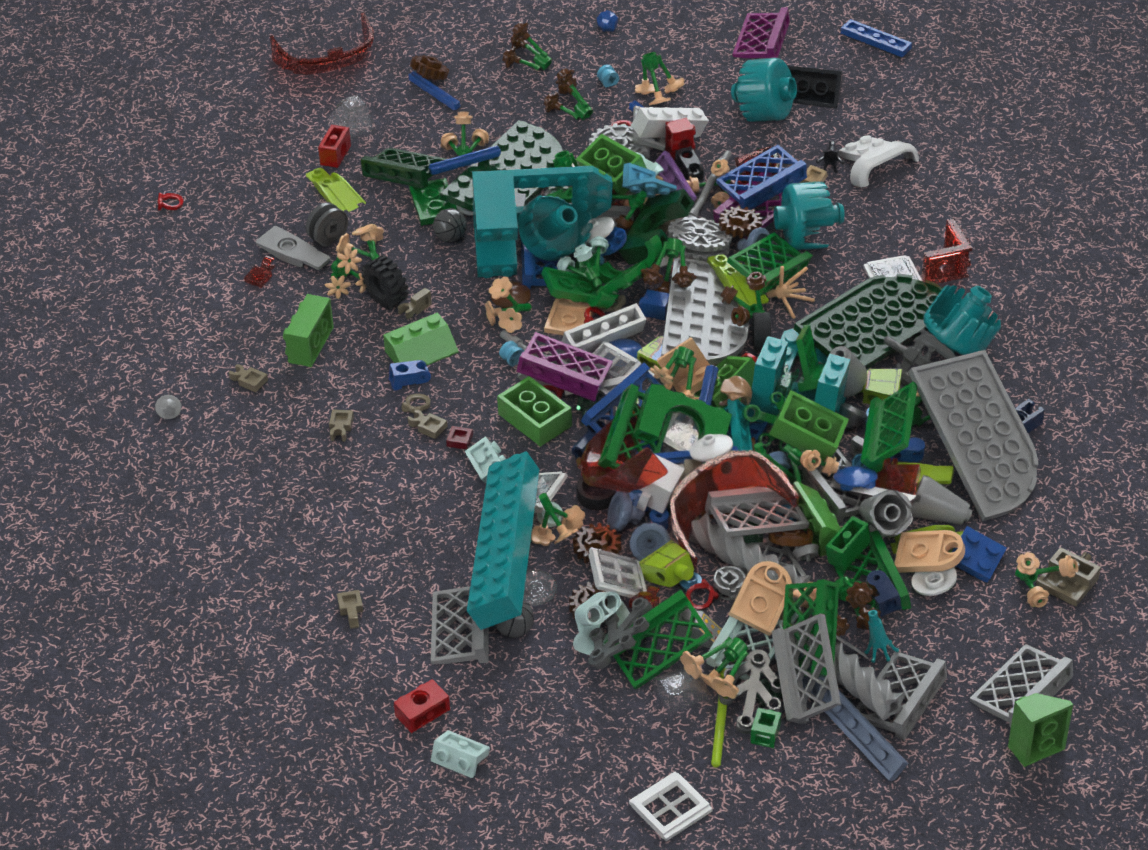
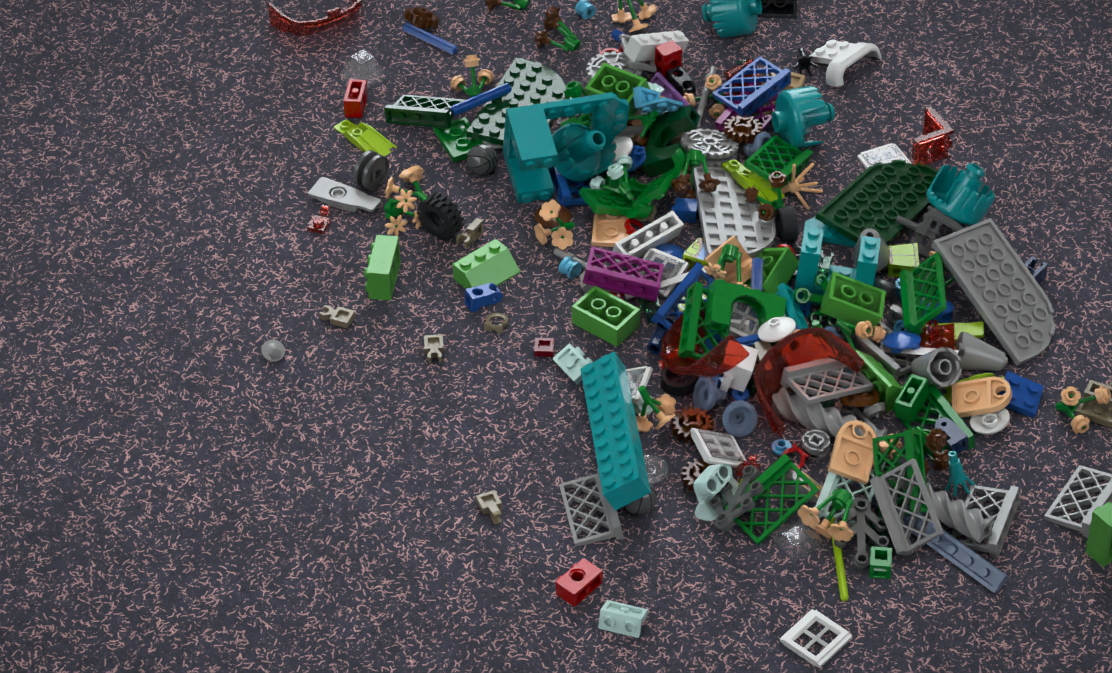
camera: 10 degrees left, 0 degrees up
(161, 197) = (207, 162): red piece -> none
(429, 425) = (514, 339): dark tan plate -> none
(667, 565) = (760, 436): lime torso -> none
(736, 388) = (783, 276): medium nougat piece -> none
(809, 361) = (842, 255): green fence -> none

